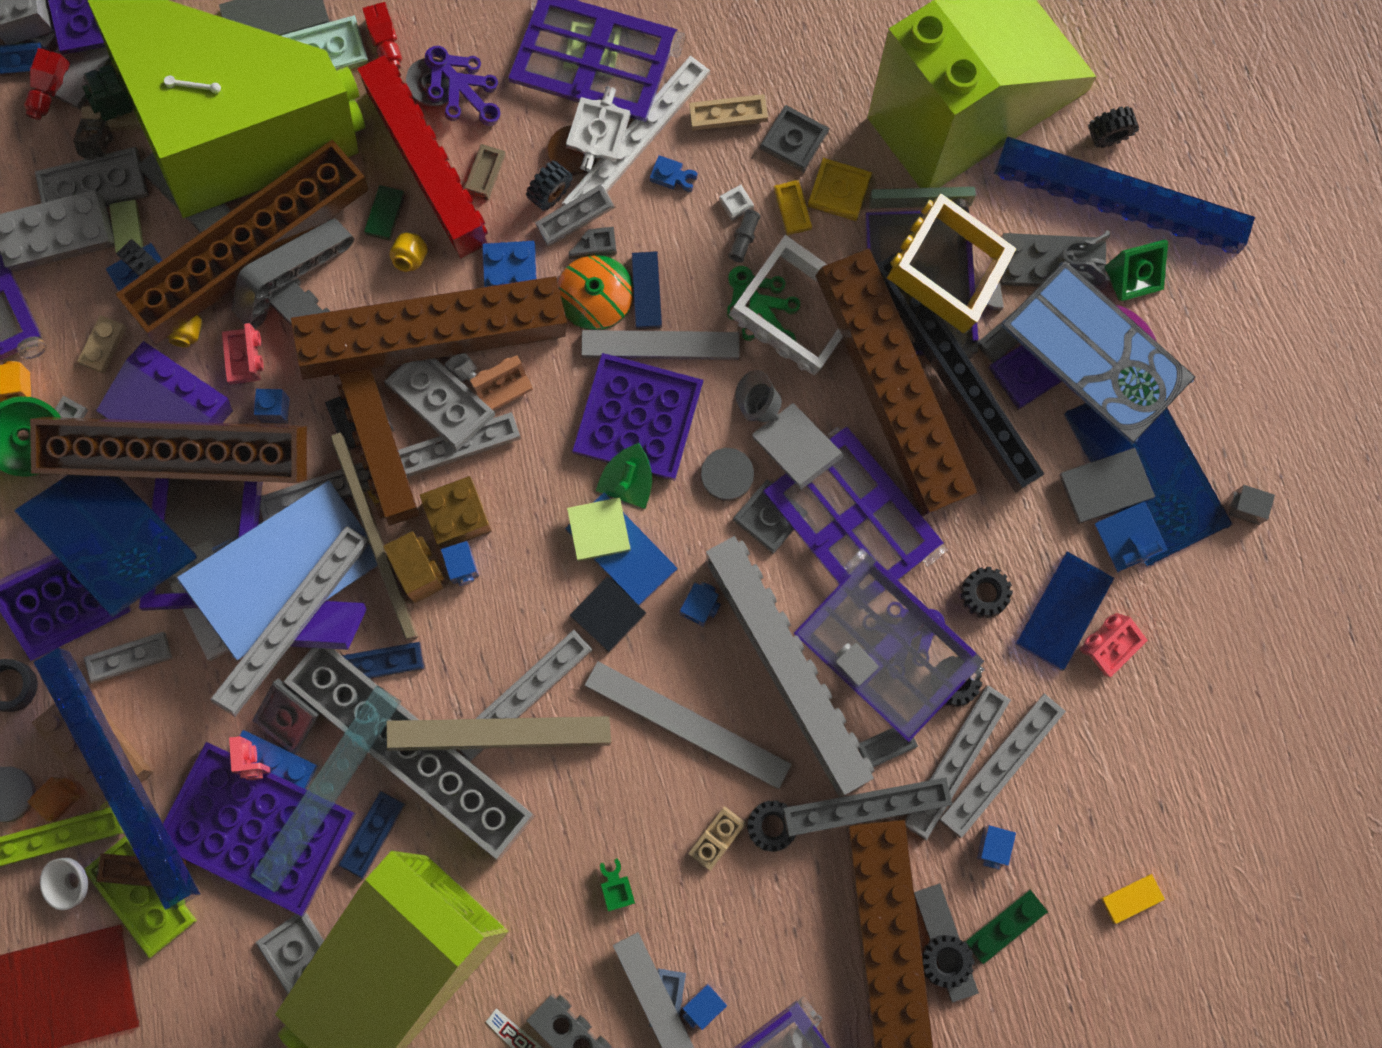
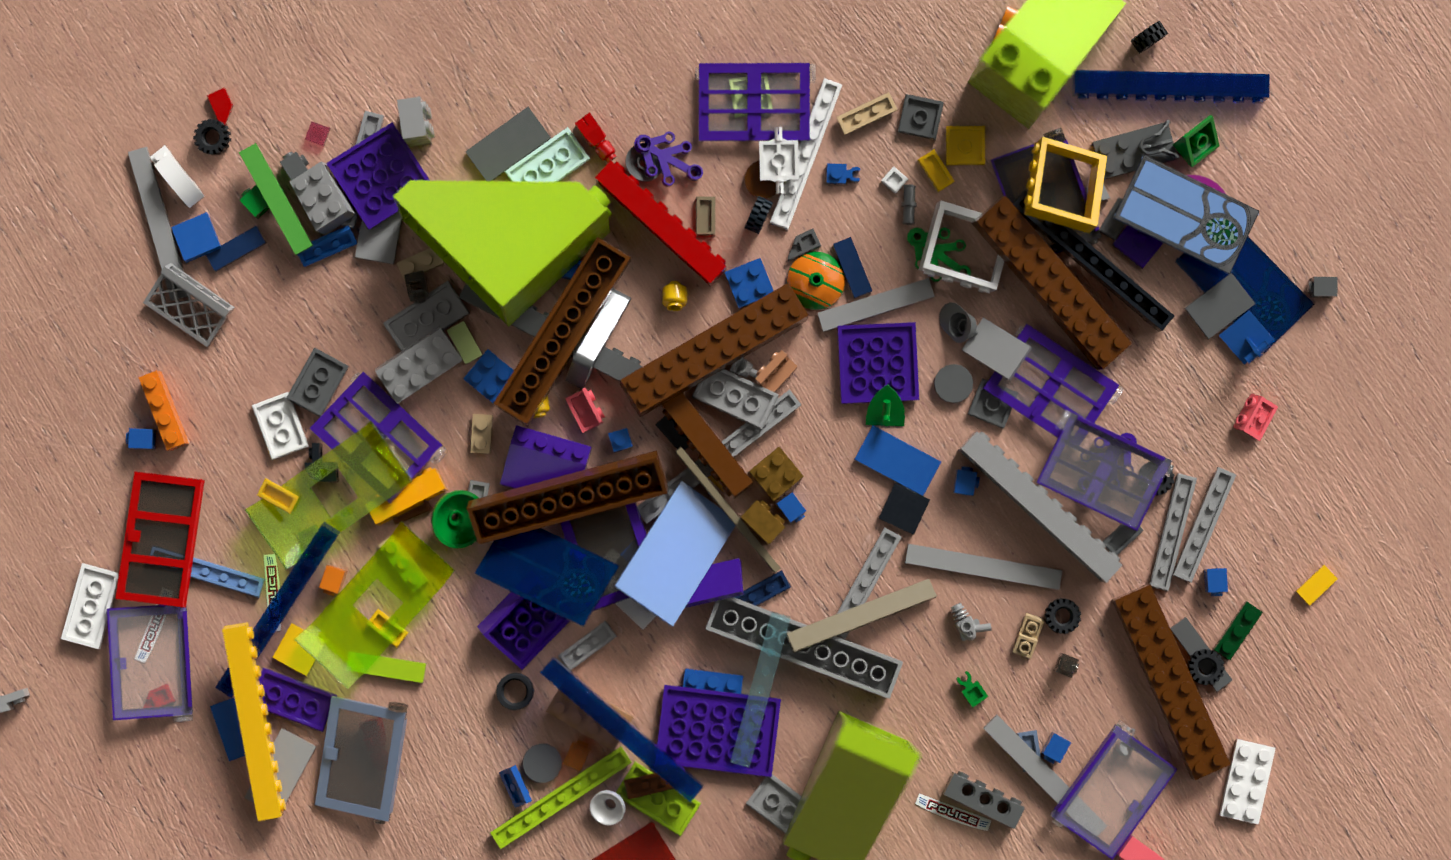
camera: 15 degrees left, 10 degrees up
(45, 79) = (365, 255): red piece -> none
(106, 93) = (415, 249): dark green brick -> none
(136, 257) = (494, 370): black tyre -> none
(170, 82) = (484, 245): white hinge -> none
(243, 758) = (698, 687): coral bracket -> none
(286, 716) = (712, 650): dark grey tile -> none
(289, 622) = (697, 587): light grey tile -> none
(372, 835) = (797, 709): dark blue tile -> none
(384, 212) = (645, 271): dark green tile -> none
(575, 215) = (783, 229): light grey tile -> none
(598, 529) = (878, 453): yellowish green tile -> none
(638, 796) = (966, 625): none -> light grey piece
(756, 896) = (1066, 665): none -> clear smoke brick
(856, 663) = (1086, 491): light grey brick -> none
(867, 806) = (1122, 583): dark grey plate -> none
(917, 196) = (1027, 134): sand green tile -> none
(1002, 588) = (1158, 397): black tyre -> none
(1064, 611) = (1215, 404): clear blue tile -> none

